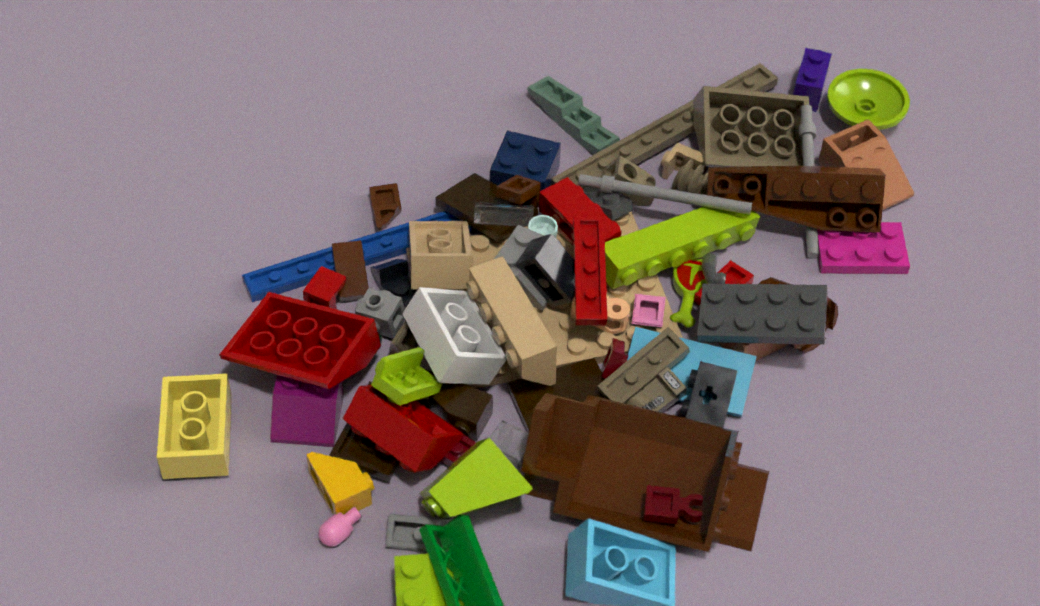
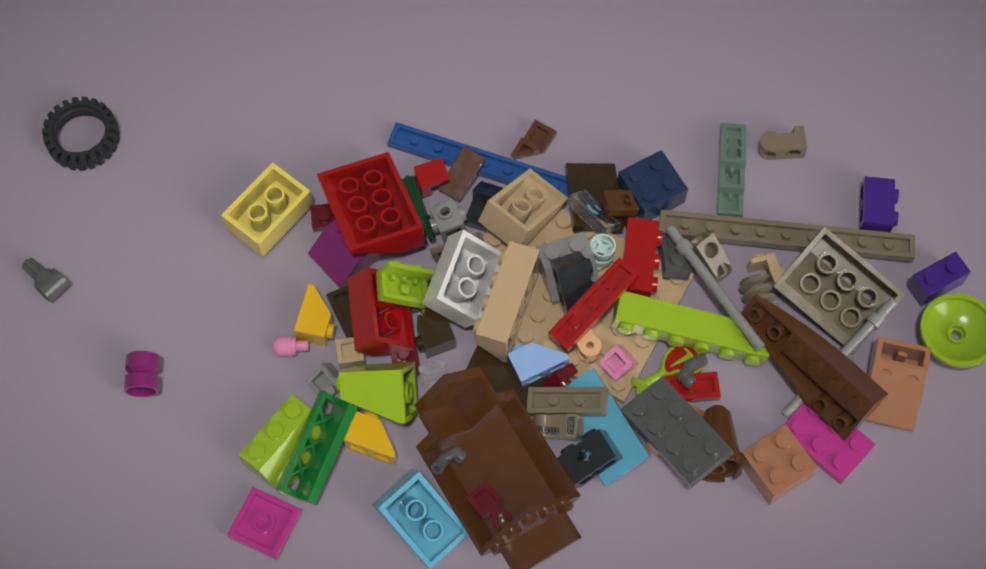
camera: 45 degrees right, 15 degrees up
(253, 398) = (321, 216): none -> dark red plate
(402, 486) = (346, 353): none -> tan plate
(508, 539) = (369, 438): none -> yellow slope
(582, 360) = (535, 362): none -> light blue slope
(593, 71) = (783, 145): none -> dark tan leg
(593, 489) = (444, 458): none -> dark grey arm
(708, 61) = (878, 204): none -> dark purple brick
(856, 287) = (777, 464): none -> nougat brick

